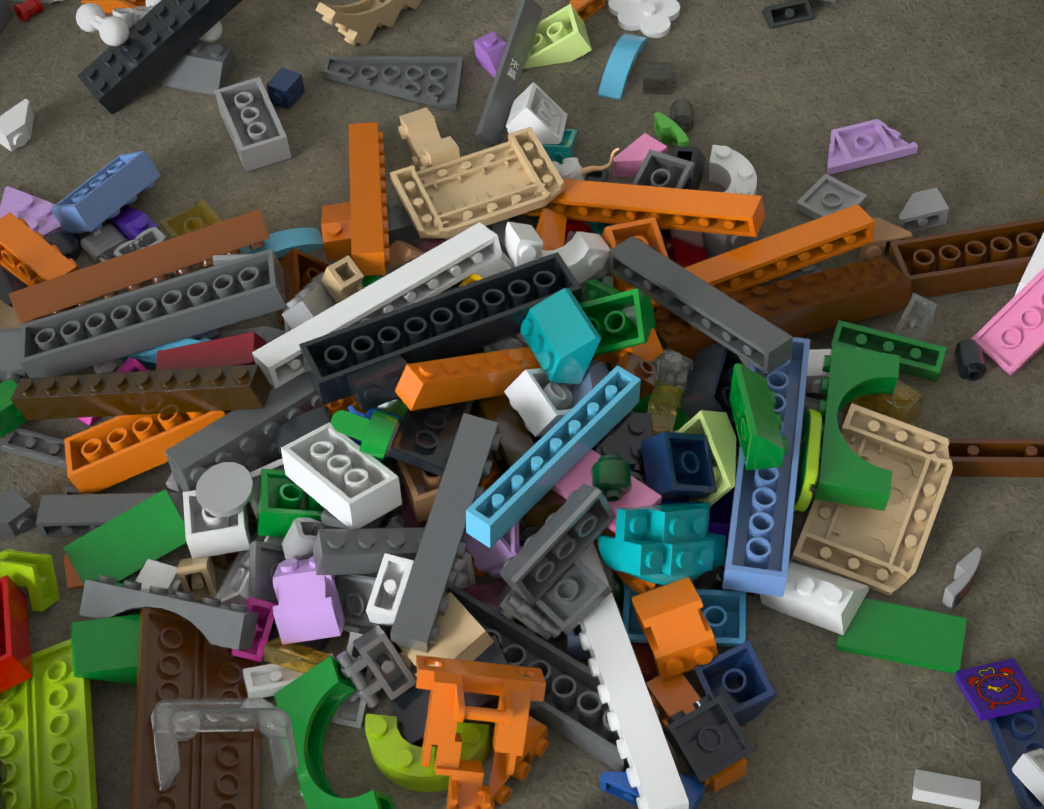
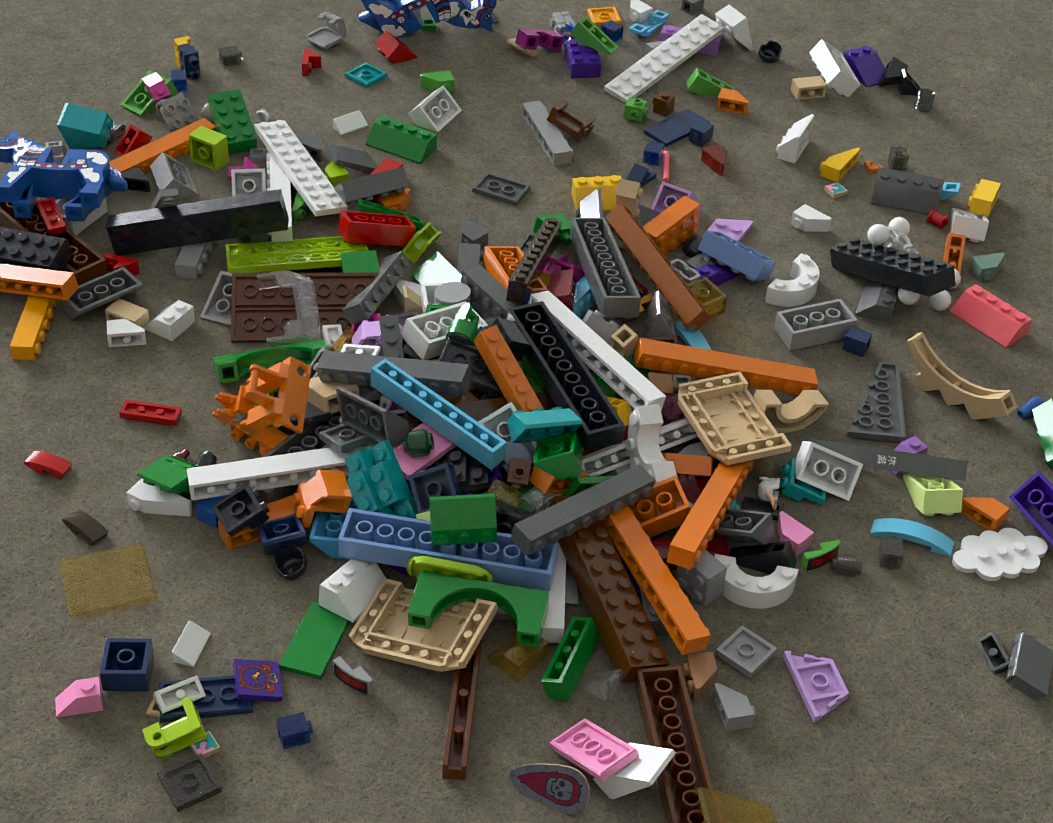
camera: 85 degrees right, 10 degrees down
(160, 131) = (796, 291): none -> white brick
(781, 671) = (288, 558): none -> black hair
(970, 360) = (562, 715): black brick -> none

